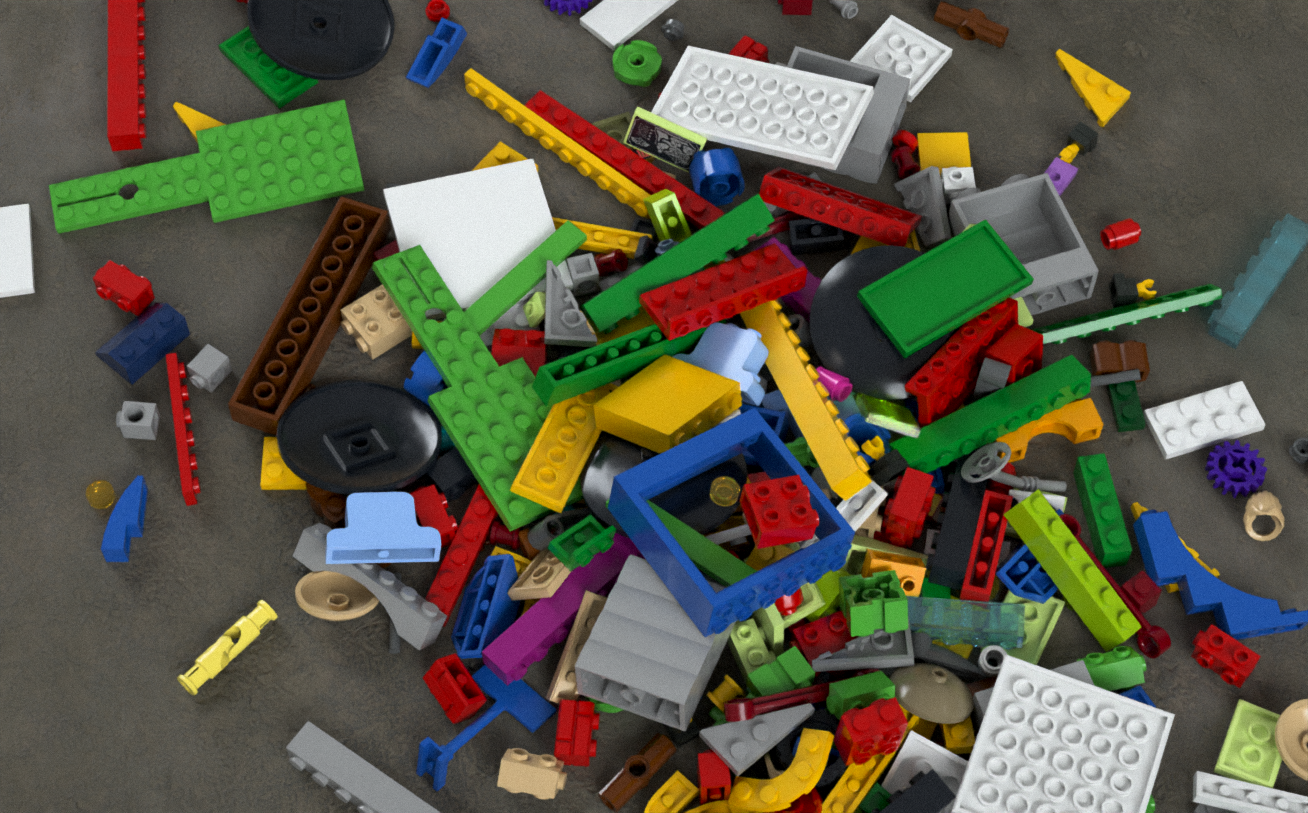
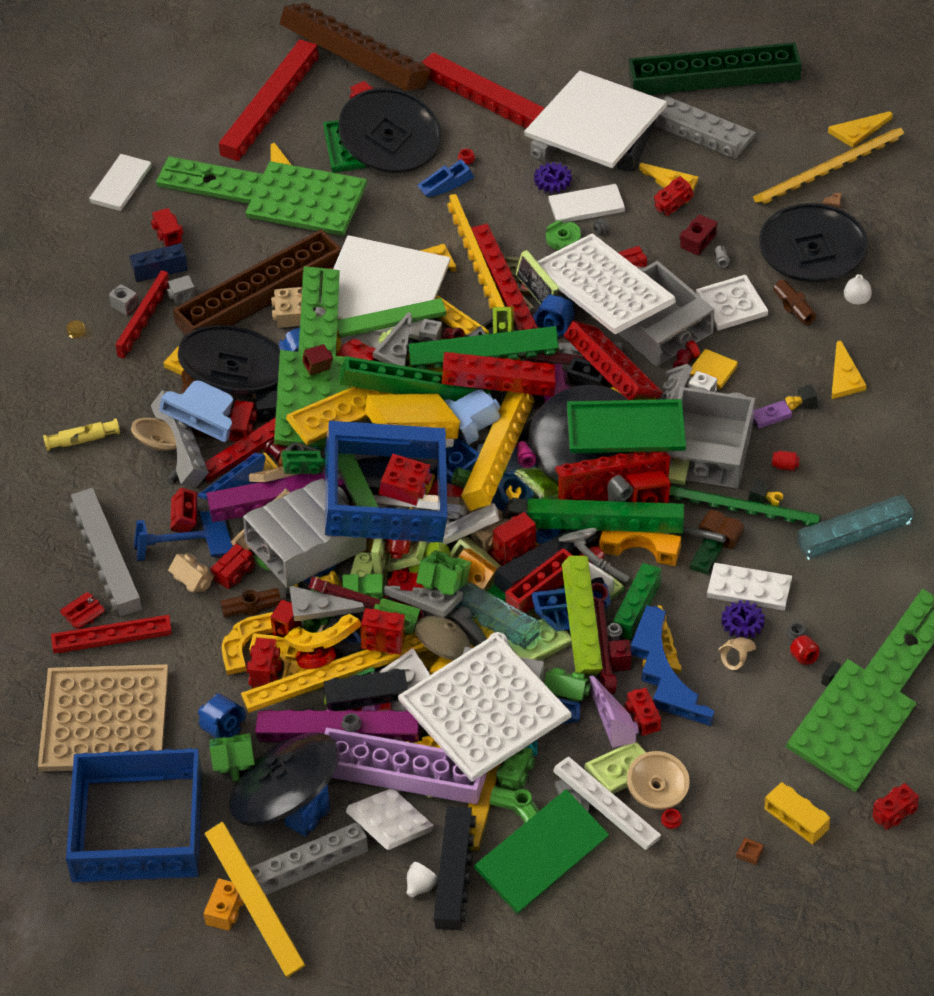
camera: 35 degrees right, 10 degrees down
(125, 522) = (77, 347): blue slope -> none
(490, 386) = (317, 359): none -> dark red brick
(724, 491) = (383, 456): clear yellow tile -> none
(1113, 566) = (614, 632): none -> light grey pin
(1200, 684) = (615, 718): none -> lavender wedge

